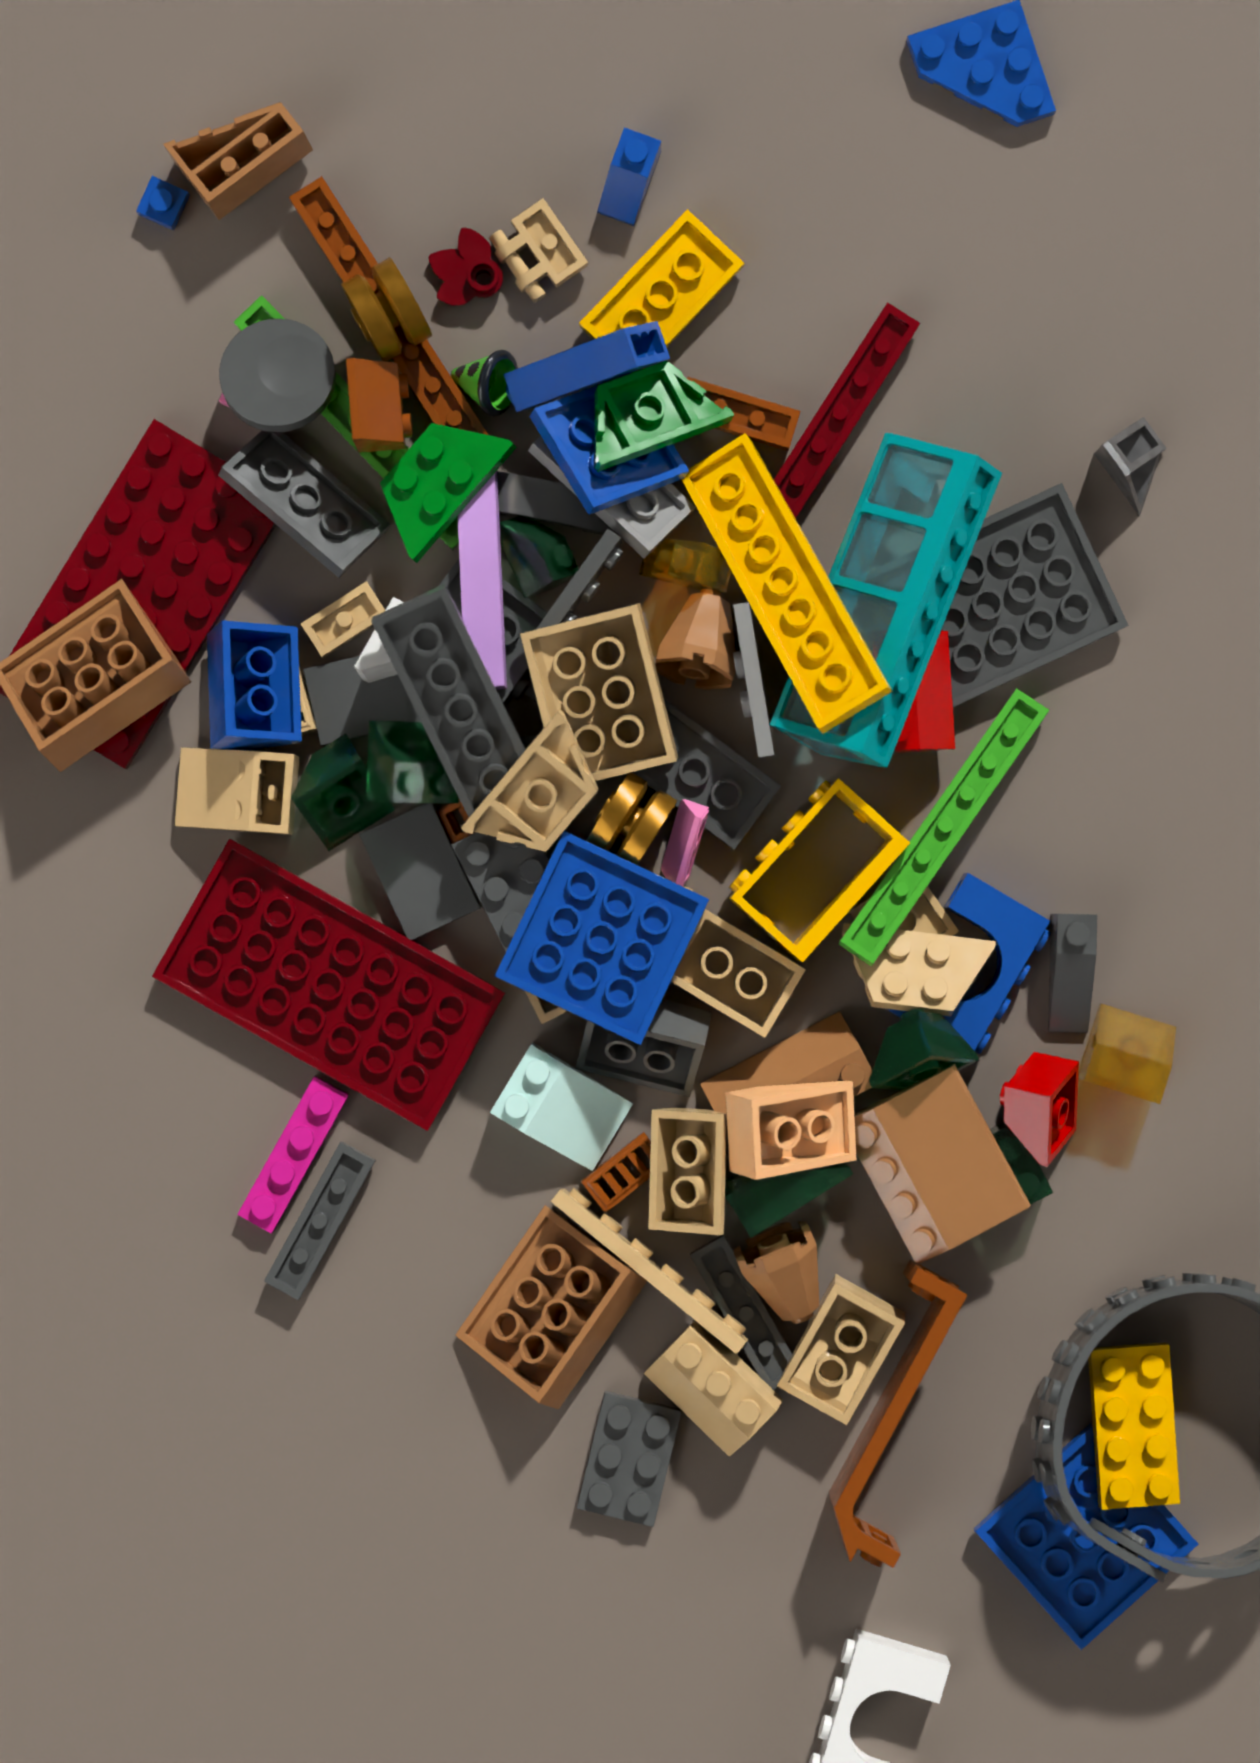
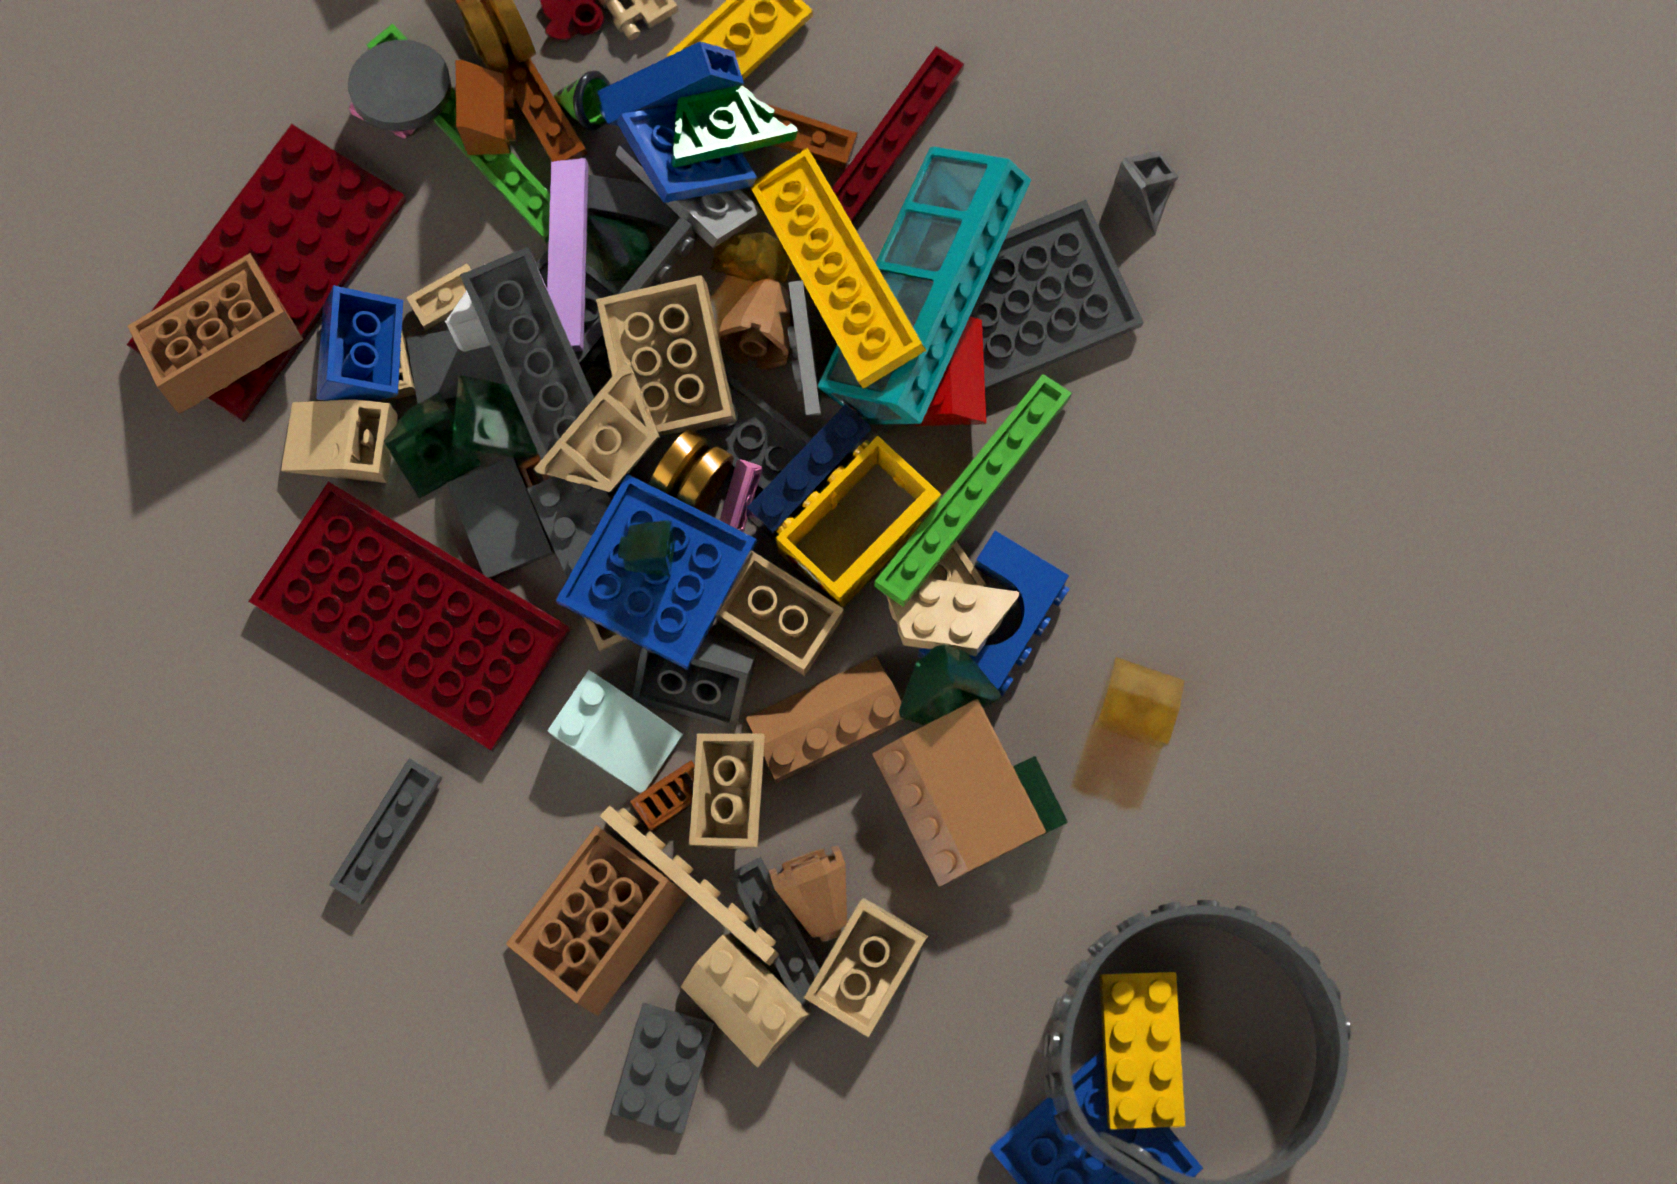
camera: 10 degrees right, 10 degrees down
(293, 1154) = (366, 770): dark pink plate -> none
(304, 500) = (416, 192): dark grey plate -> none
(438, 481) = (535, 177): green wing -> none
(593, 920) = (648, 548): none -> clear green slope
(762, 815) = (808, 470): none -> dark blue brick
(772, 1198) = (808, 814): clear green slope -> none
(790, 1128) = (823, 749): light nougat slope -> none
(945, 1304) = (889, 1154): dark orange panel -> none
(1042, 1104) = (1059, 741): red slope -> none
(1071, 971) = (1089, 625): dark grey slope -> none

